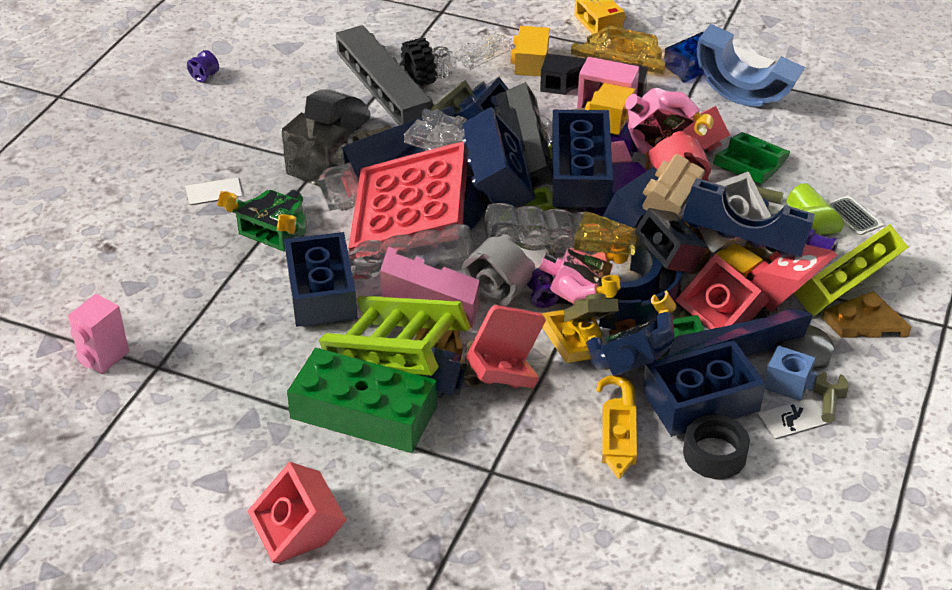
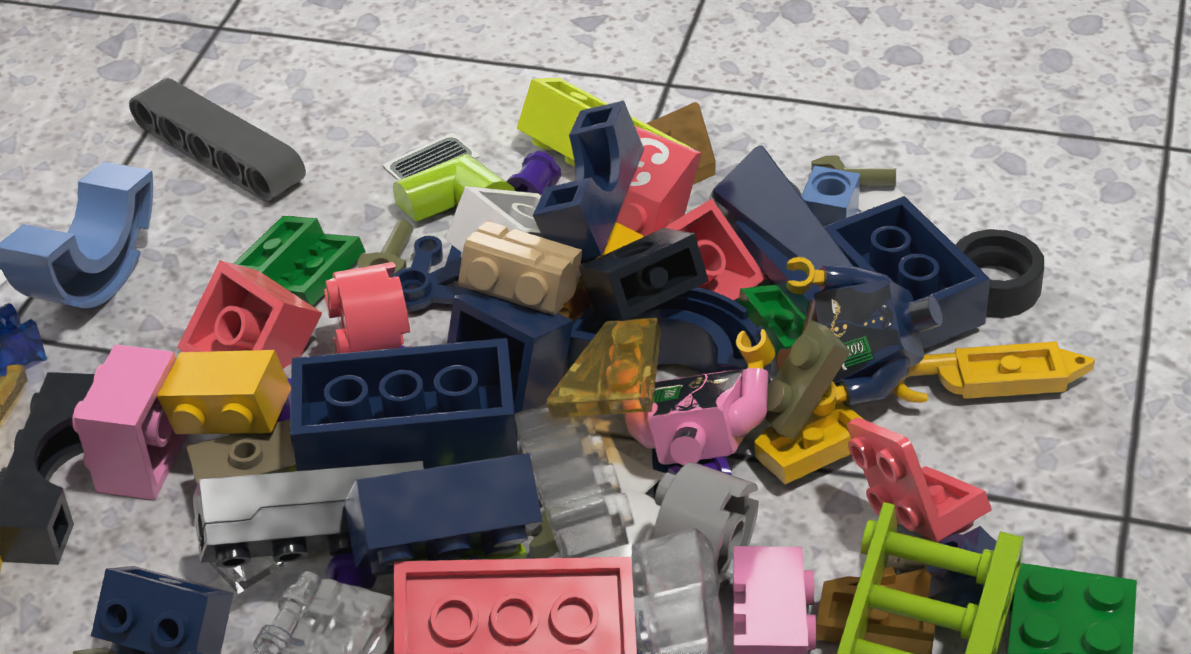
camera: 95 degrees left, 0 degrees up
(661, 115) = (285, 296): torso -> none
(860, 125) = (217, 139): none -> dark grey beam

